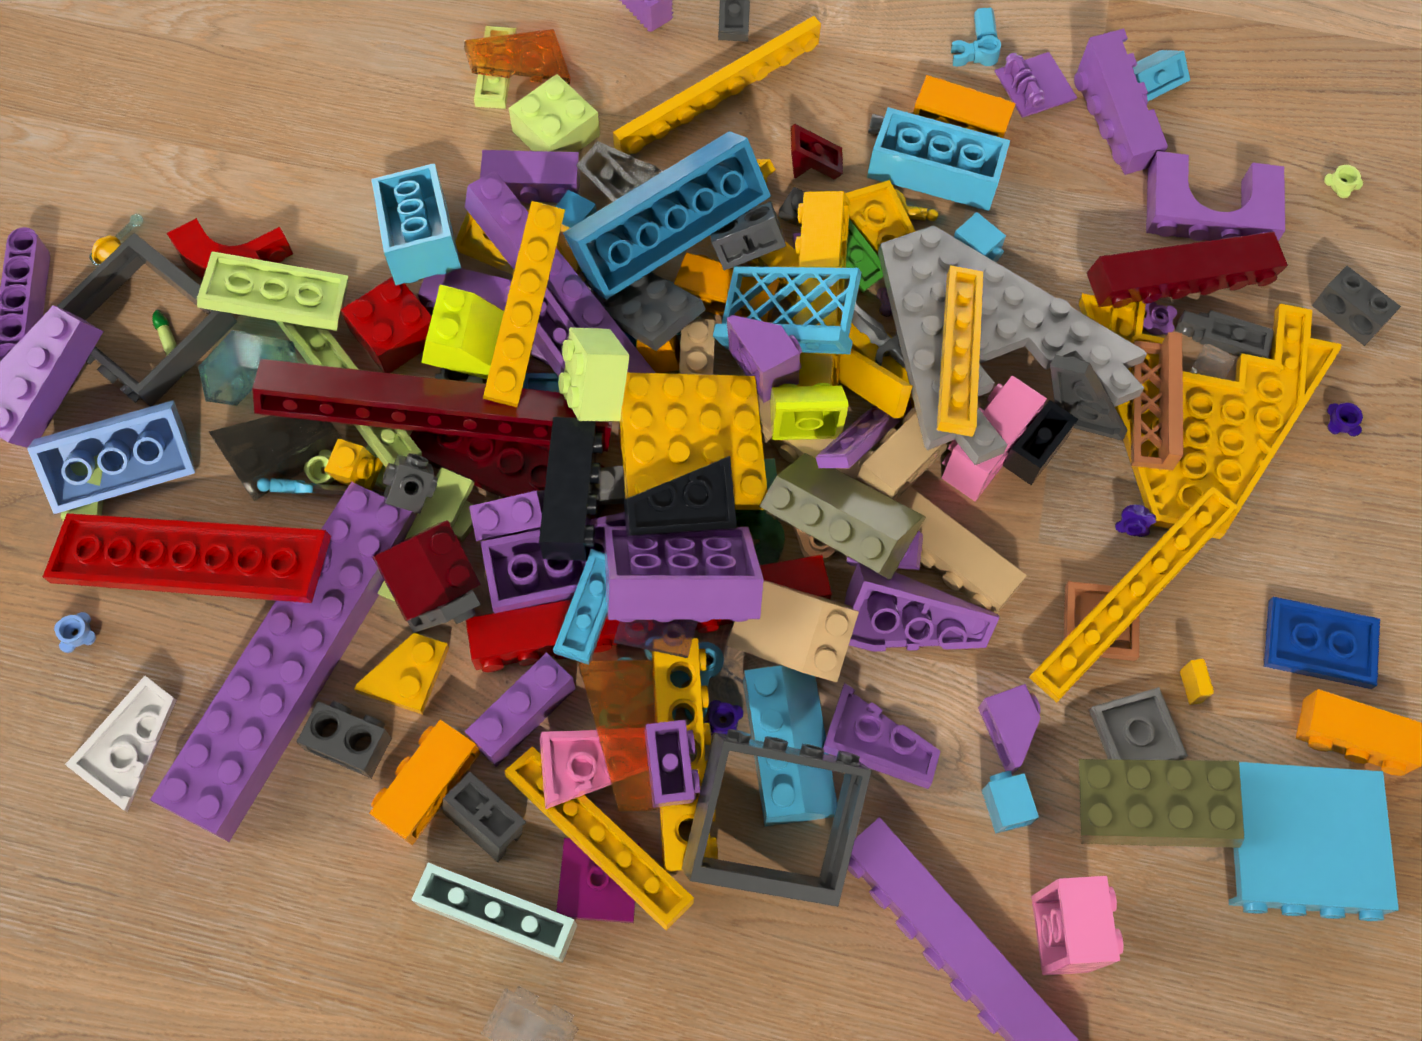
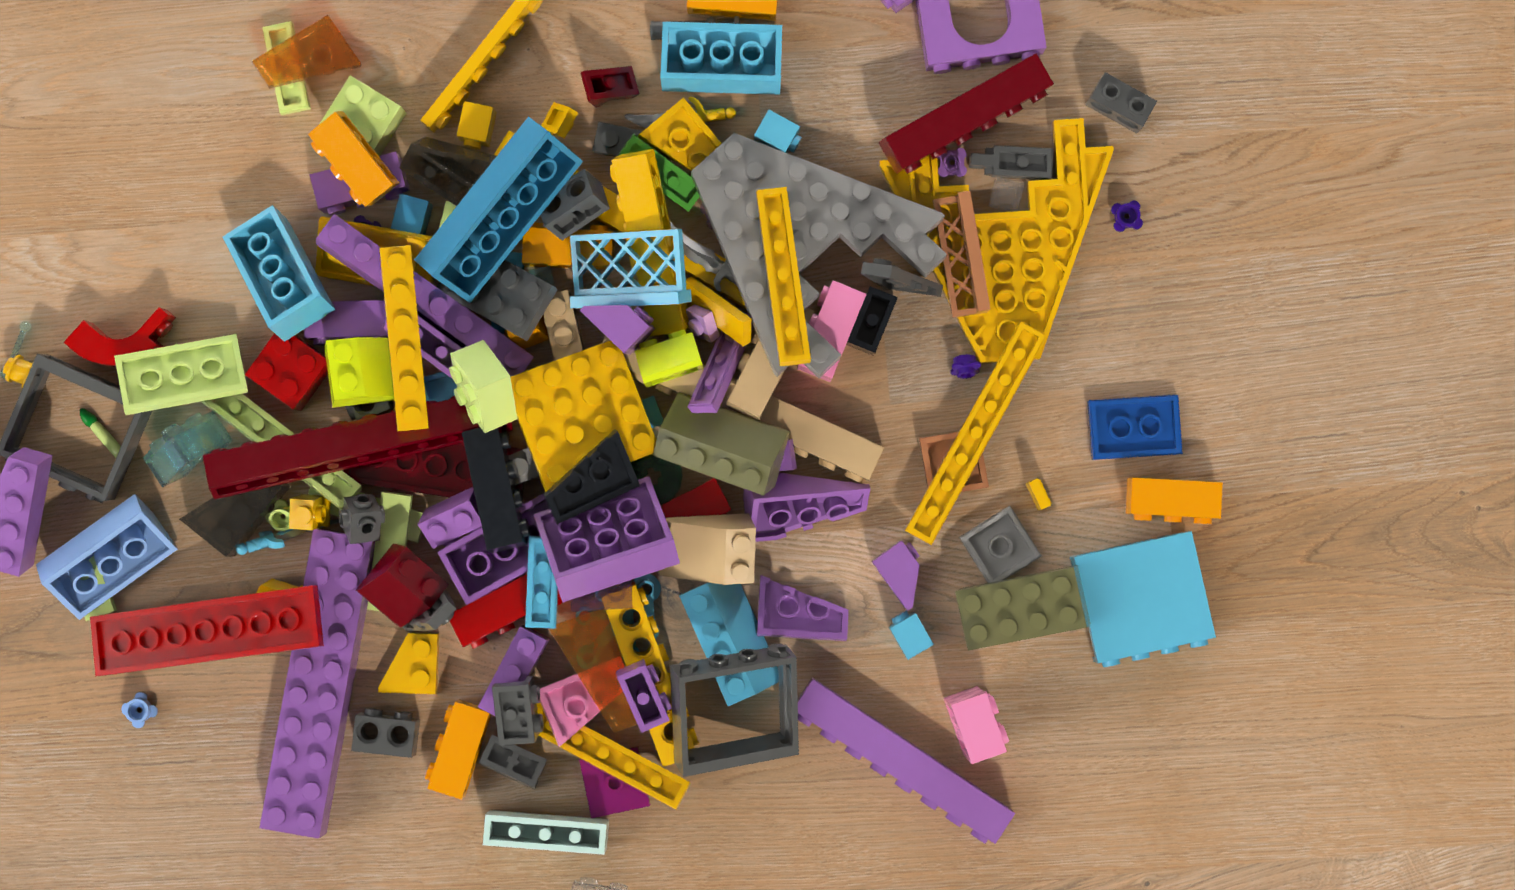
camera: 10 degrees left, 20 degrees up
(124, 743) = (217, 786): white wing -> none
(510, 746) = (517, 712): none -> dark grey bracket
(532, 138) = (352, 159): none -> light orange brick
(668, 149) = (476, 125): none -> yellow brick
(718, 710) = (679, 625): dark purple plate -> none
(855, 391) = (702, 323): none -> lavender plate

